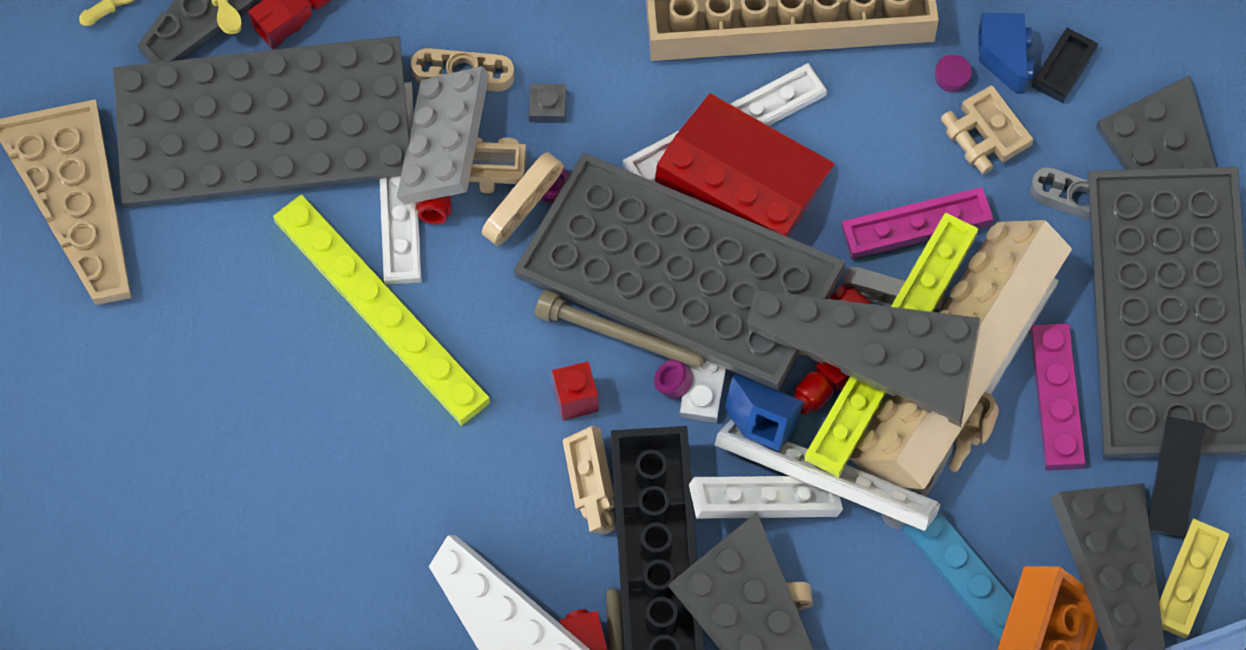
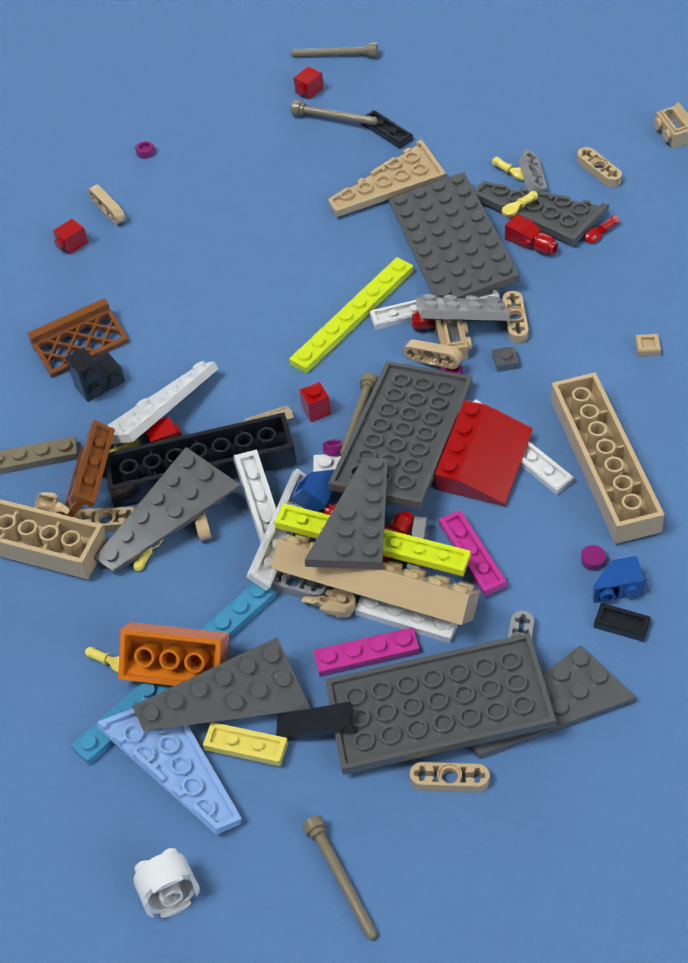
camera: 85 degrees right, 15 degrees down
(994, 122) = (558, 586): tan plate -> none

